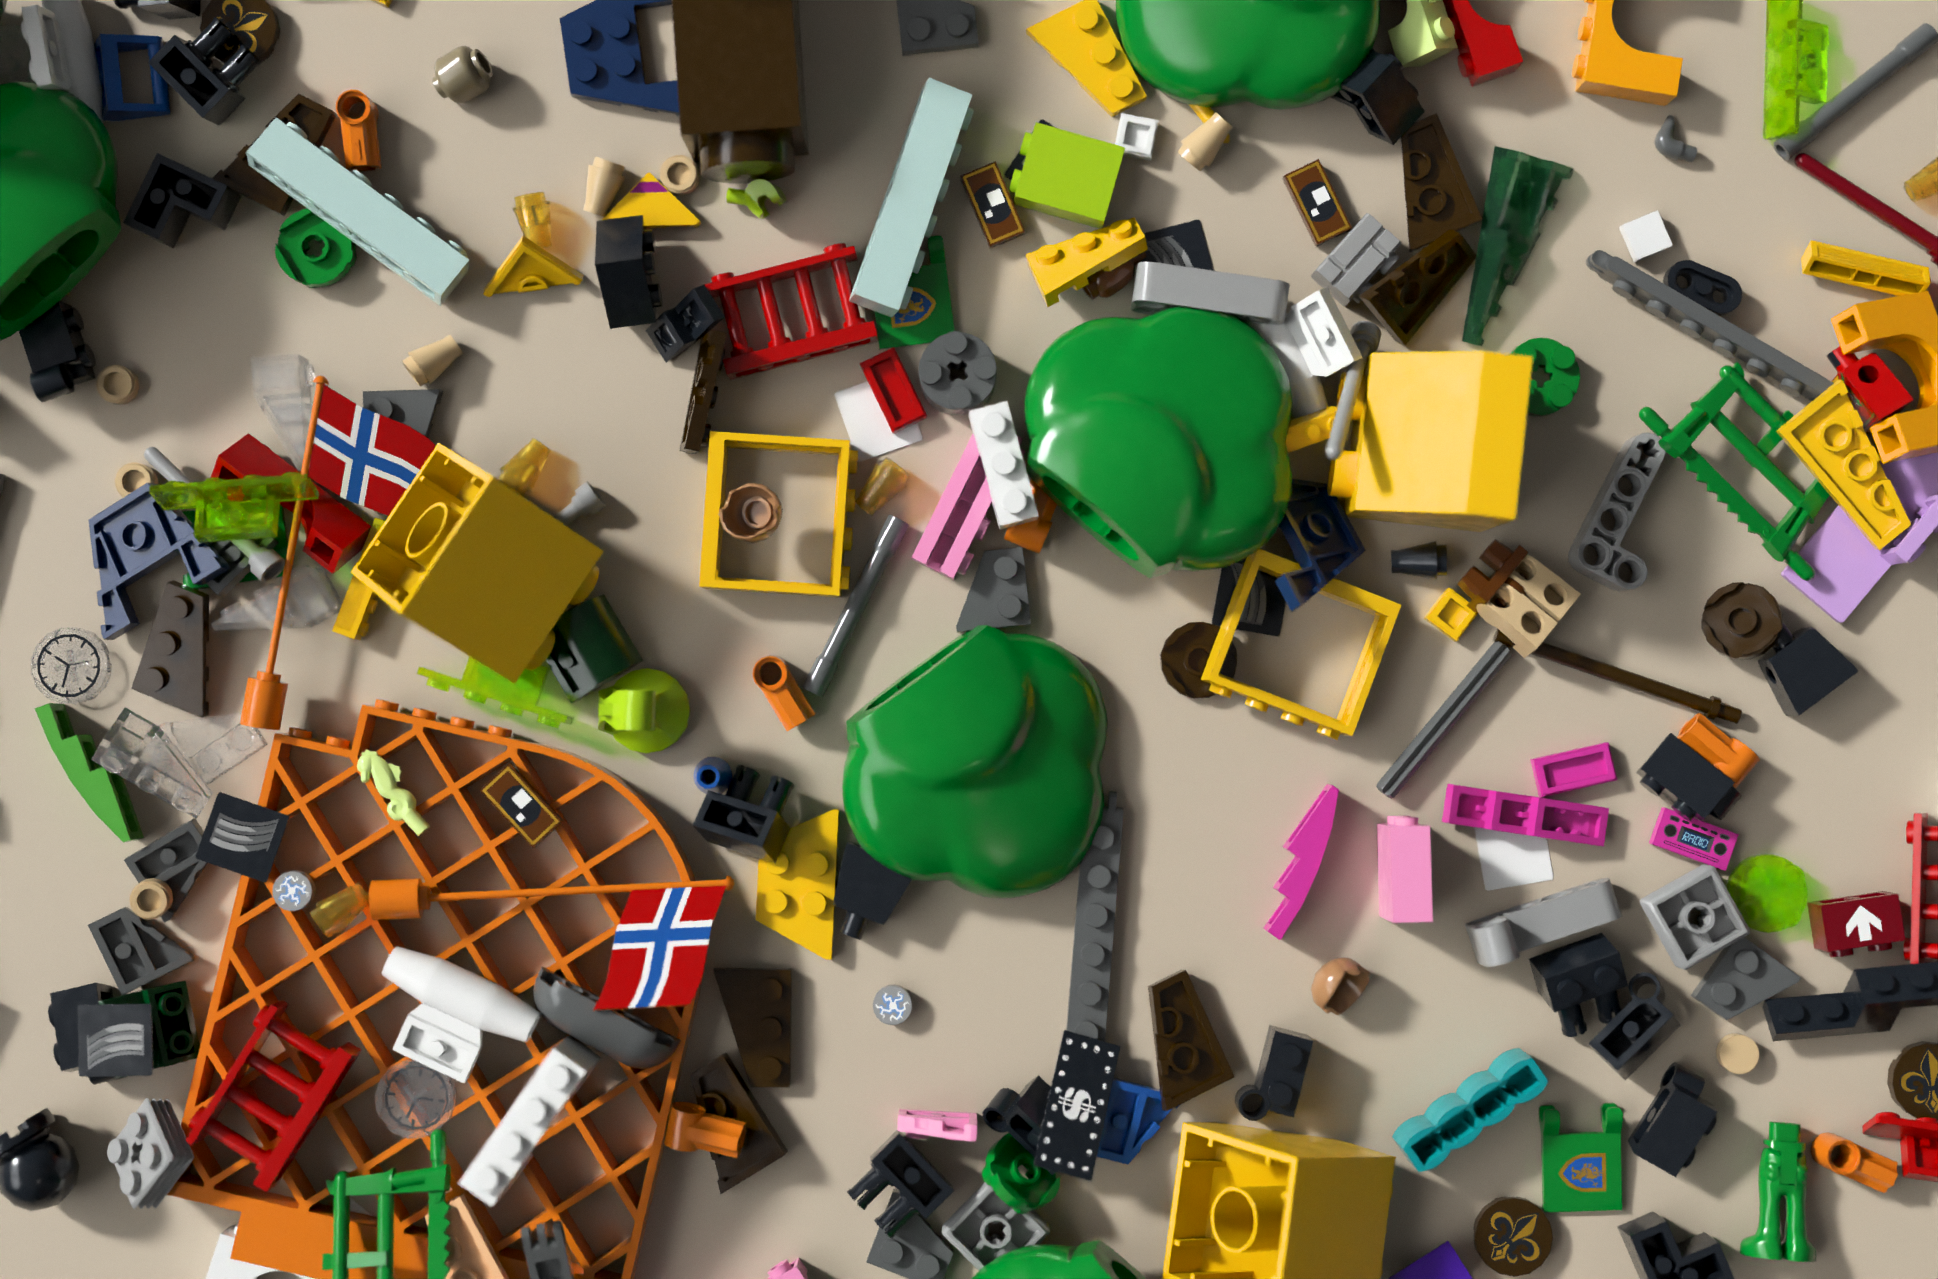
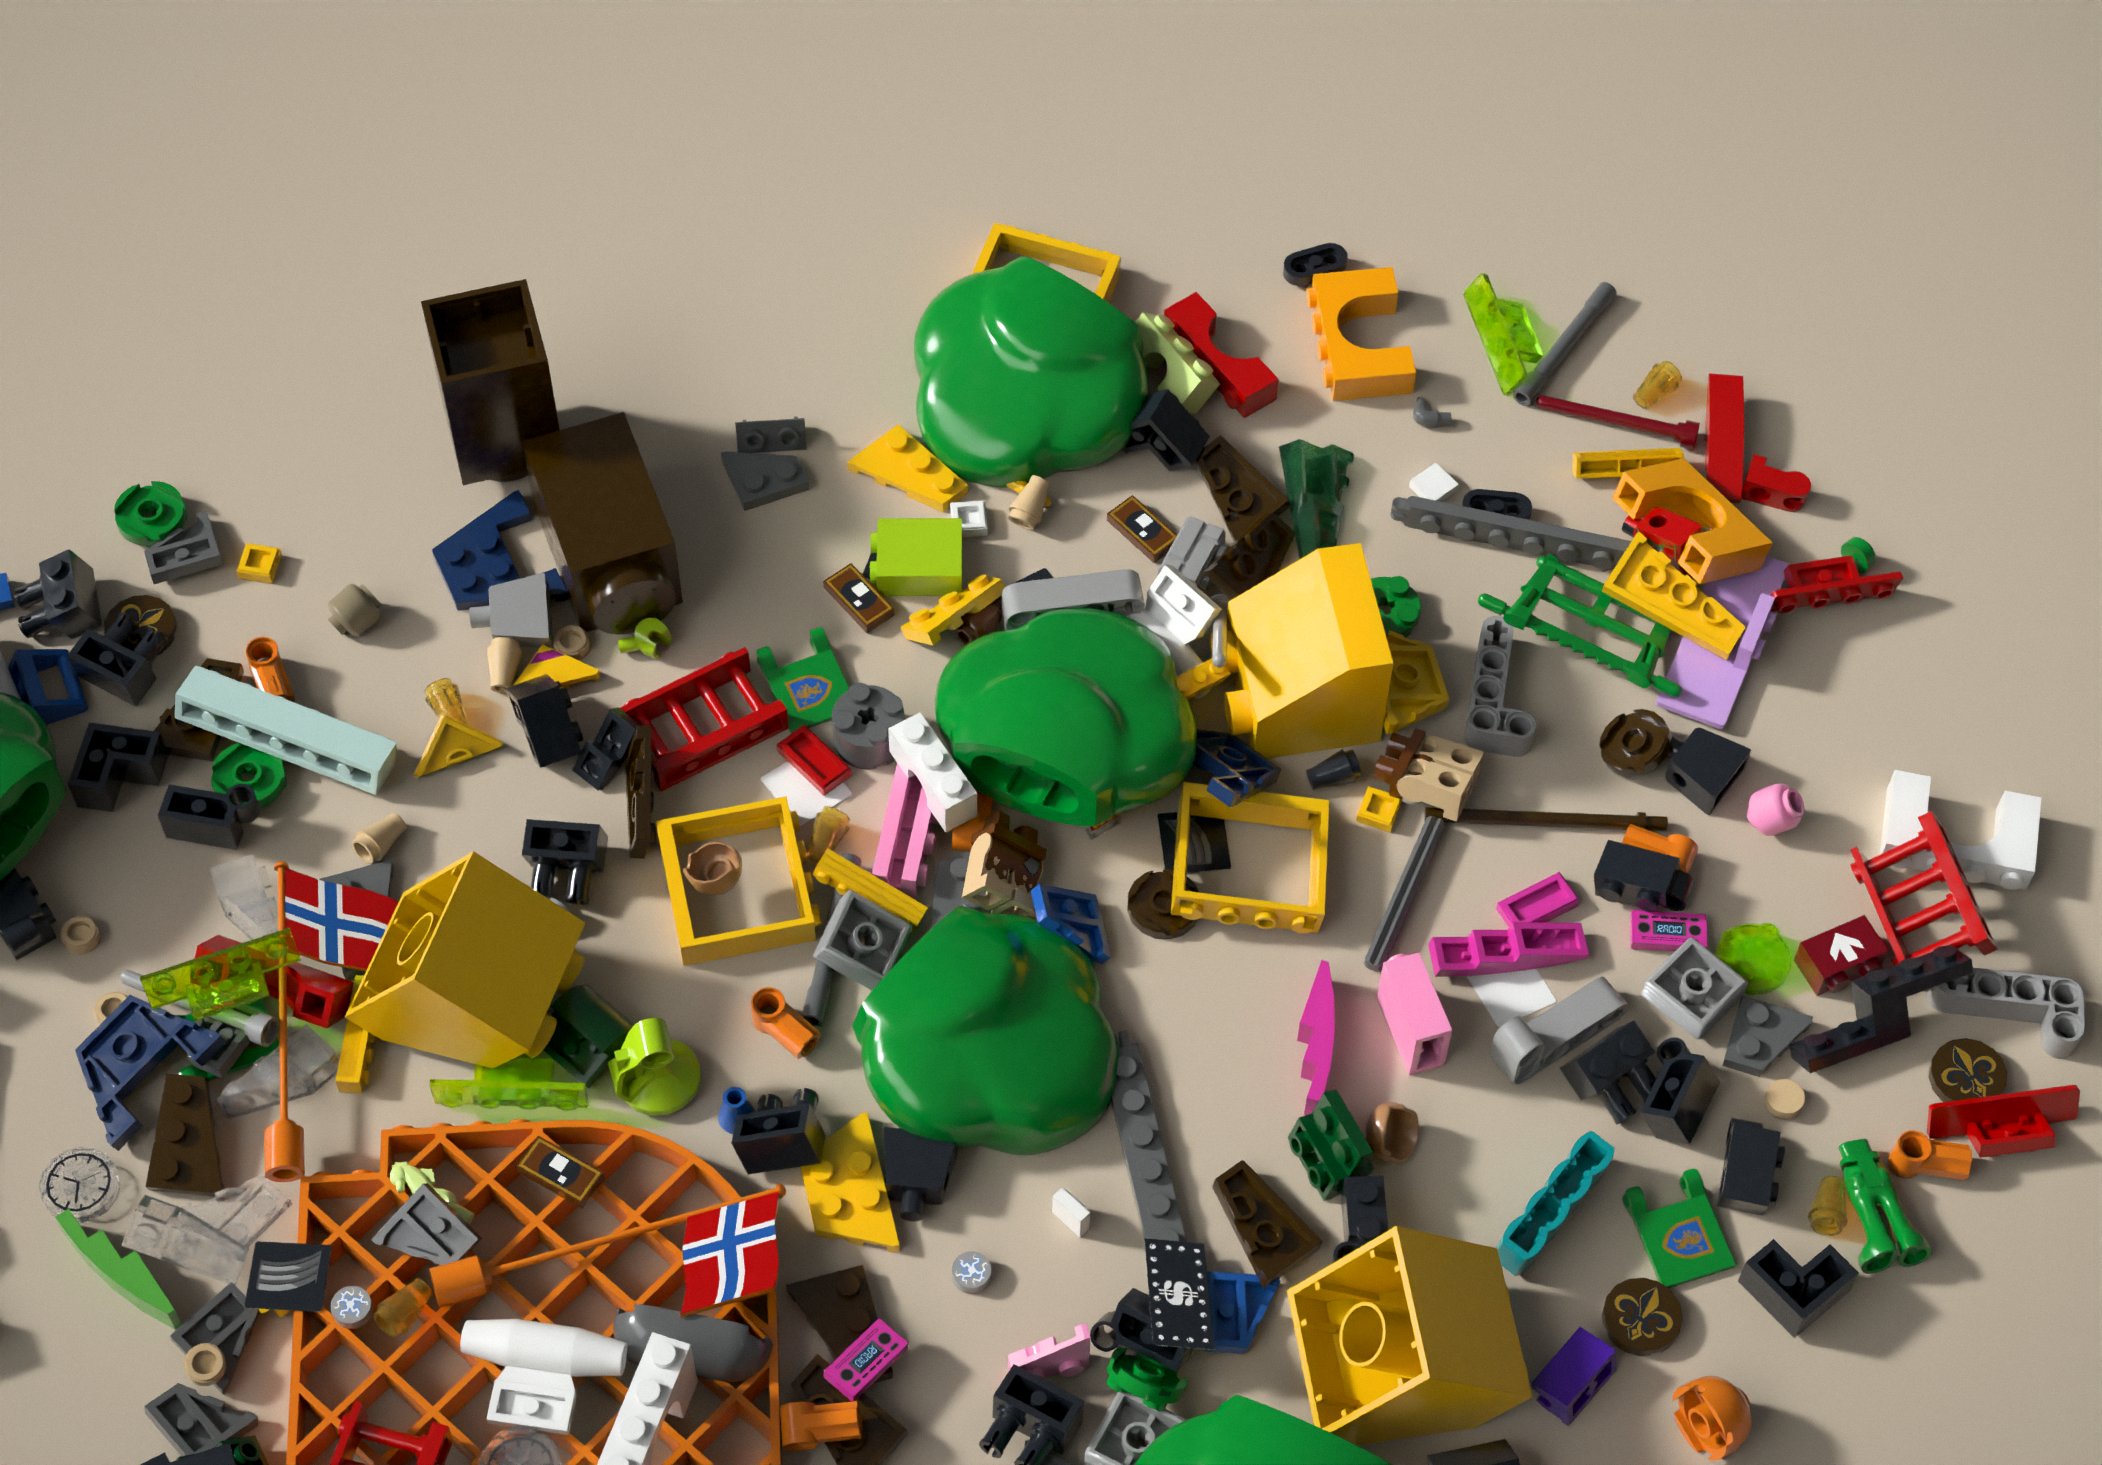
camera: 20 degrees left, 30 degrees down
(261, 291) = (208, 815): none -> black hinge
(382, 837) = (428, 1229): none -> wing
(614, 432) = (564, 846): none -> black brick
(629, 131) = (518, 611): none -> light grey torso
(764, 1079) = (866, 1360): none -> dark pink tile
(905, 571) = (847, 876): none -> yellow piece
(906, 623) = (883, 935): none -> light grey brick
(911, 198) = (785, 603): light aqua brick -> none
(1004, 975) = (1071, 1211): none -> white tile
(1048, 587) = (1004, 866): none -> hips
(1100, 661) = (1073, 916): none -> blue wing
(1273, 986) = (1330, 1145): none -> dark green brick
(1543, 479) = (1415, 684): none -> yellow wing
(1735, 1181) = (1828, 1209): none -> clear yellow cone
(1856, 742) = (1775, 809): none -> bright pink head

